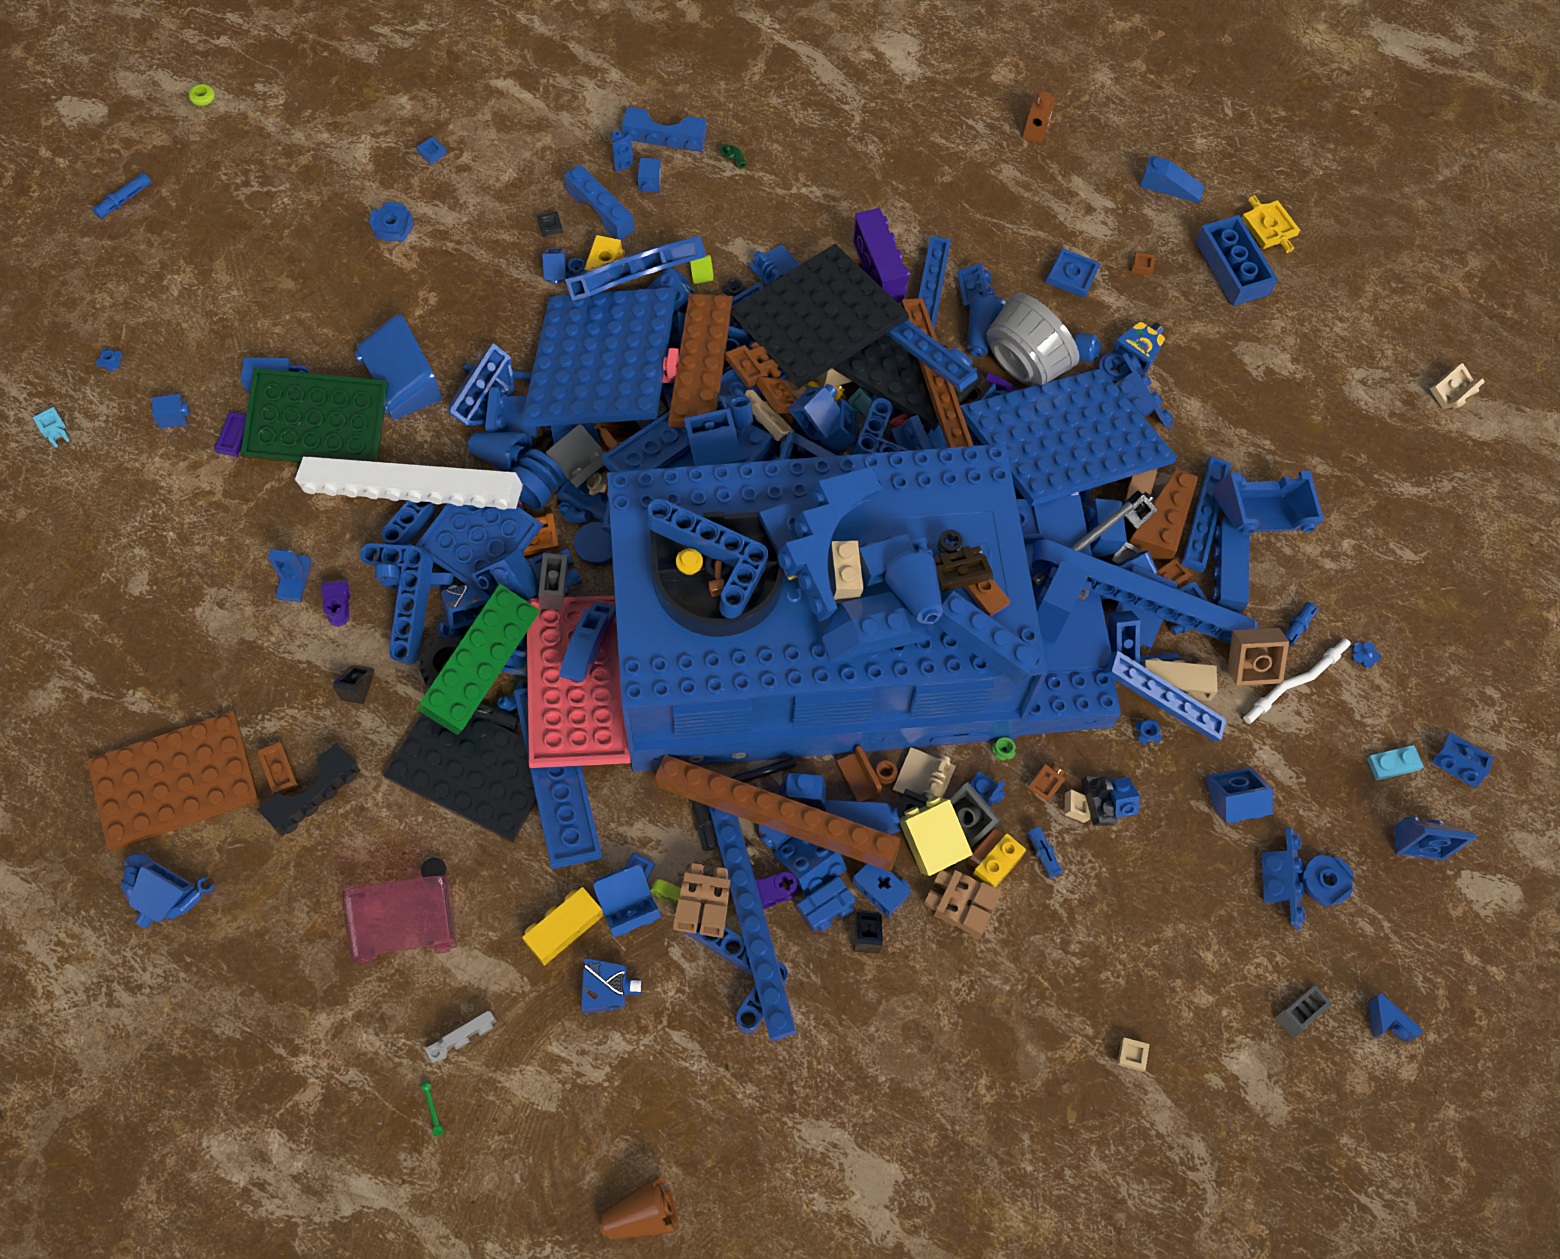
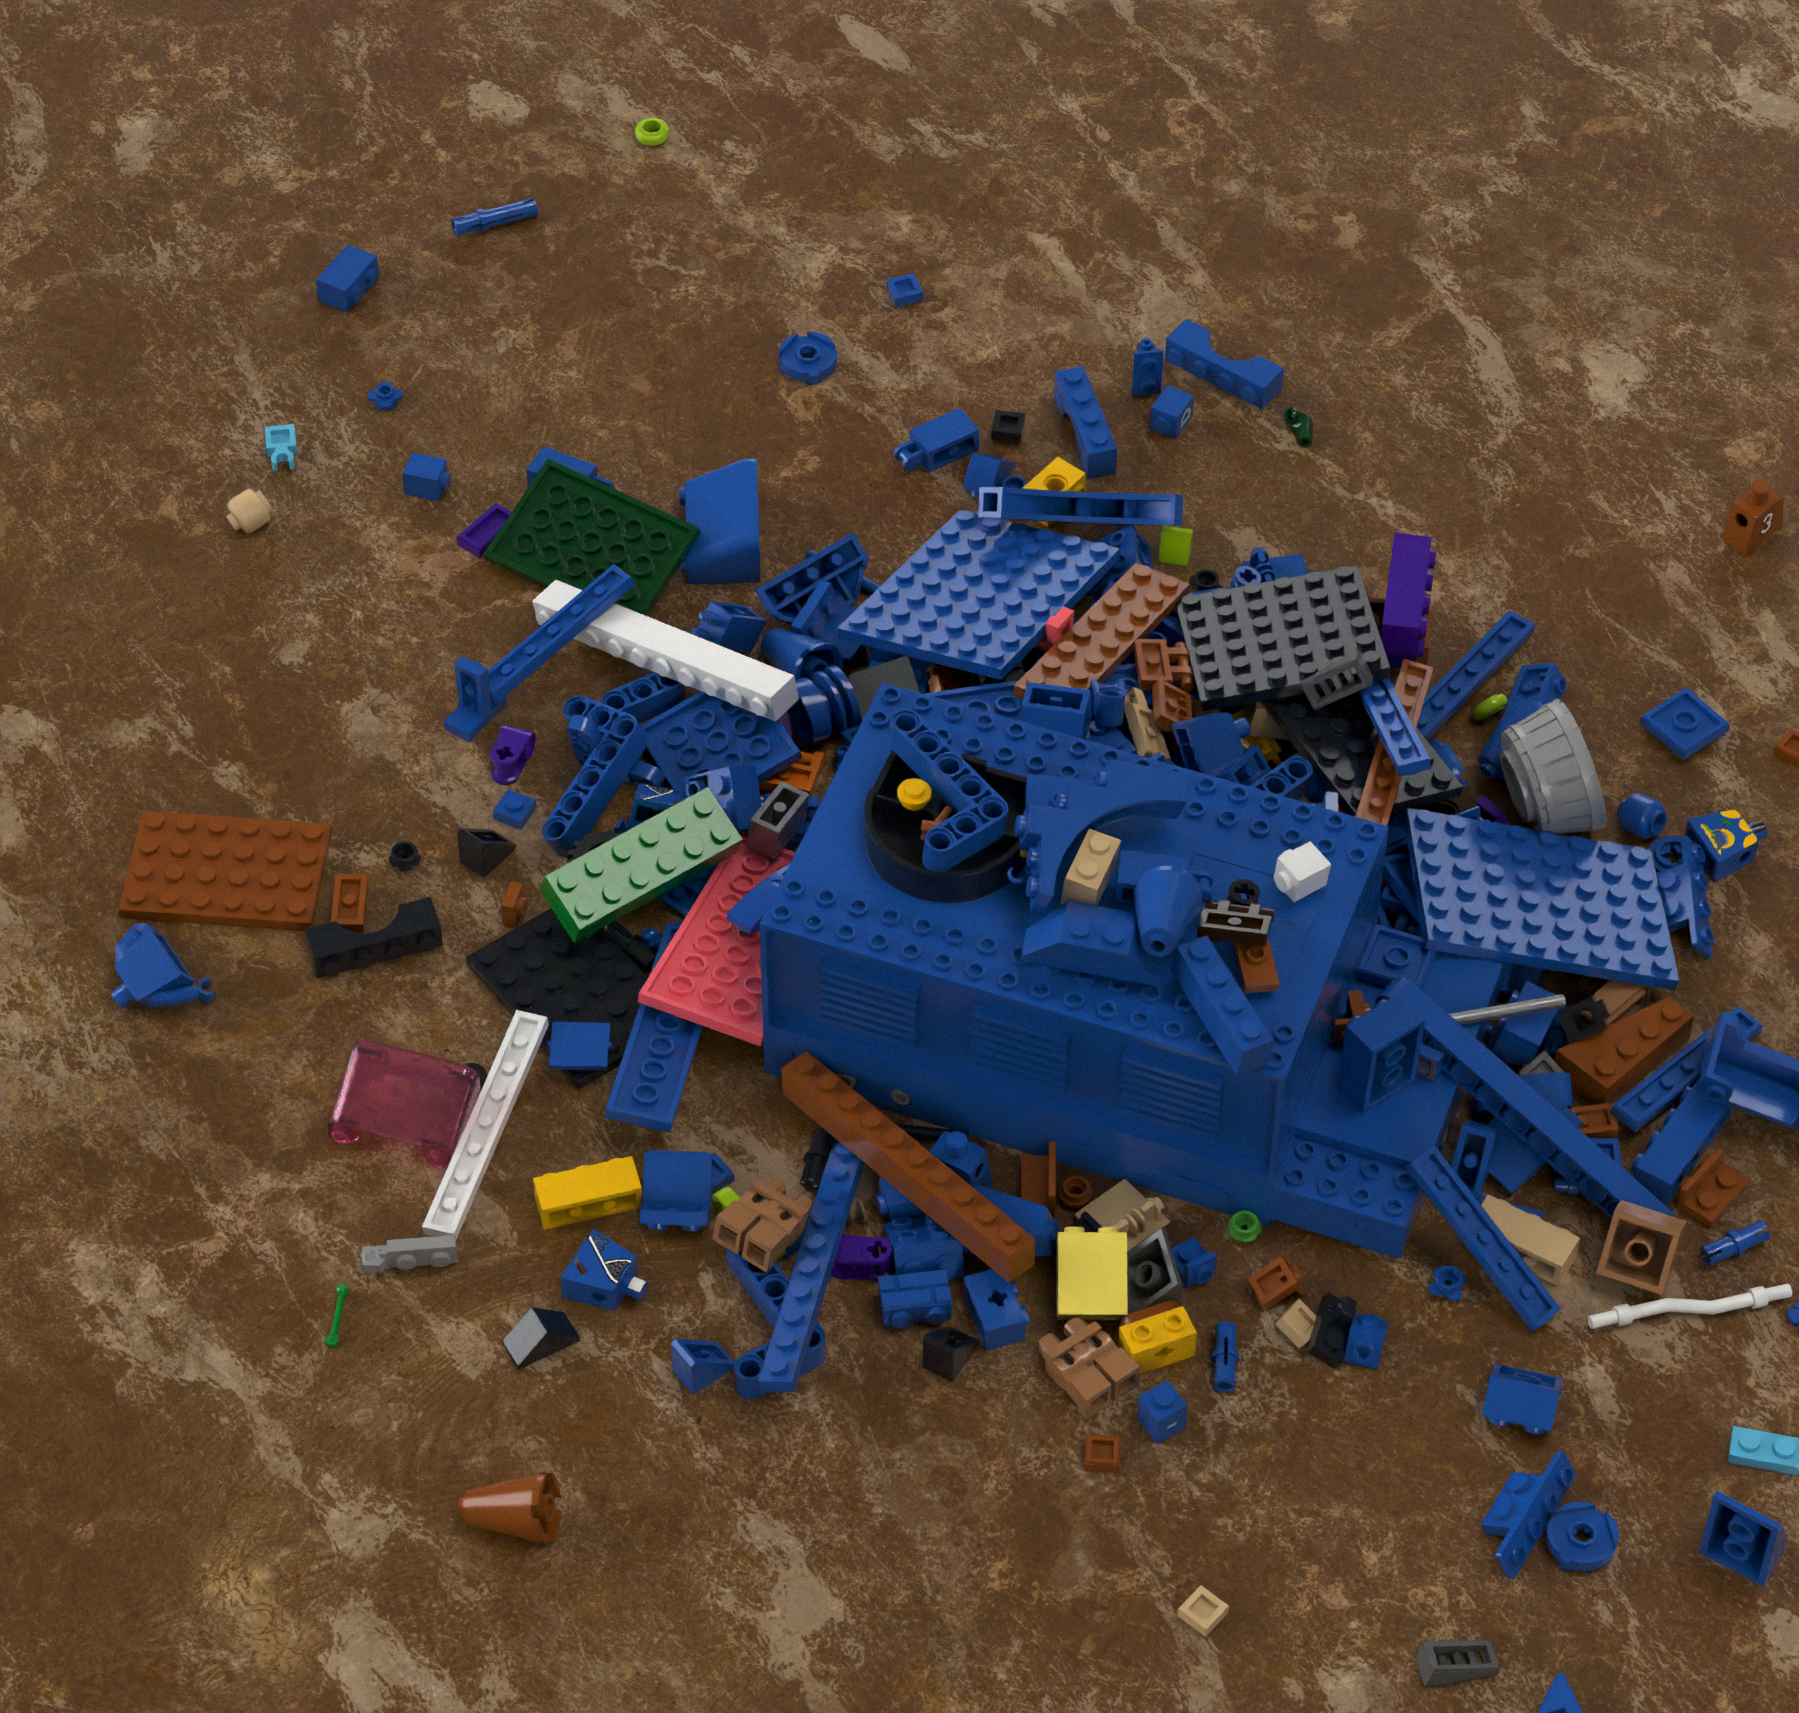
camera: 30 degrees right, 15 degrees down
(38, 279) = (347, 278): none -> blue brick
(52, 487) = (249, 511): none -> tan head
(298, 708) = (404, 856): none -> black plate
(326, 498) = (558, 631): none -> blue tile
(359, 643) = (514, 809): none -> blue plate
(397, 719) = (514, 904): none -> dark orange plate
(443, 446) = (730, 626): none -> blue hinge
(465, 908) = (485, 1125): none -> white plate
(500, 813) = (579, 1046): none -> blue piece
(511, 252) = (939, 442): none -> blue brick
(586, 1057) = (538, 1336): none -> black slope
(709, 1023) = (699, 1362): none -> blue slope
(758, 276) = (1245, 573): none -> blue bush
(873, 331) = (1343, 665): none -> dark grey slope
(953, 307) = (1489, 706): none -> lime piece
(978, 507) = (1301, 871): none -> white brick
(1004, 962) = (1102, 1453): none -> dark orange tile
(1030, 916) = (1162, 1412): none -> blue brick
(1265, 592) = (1711, 1190): none -> dark orange bracket

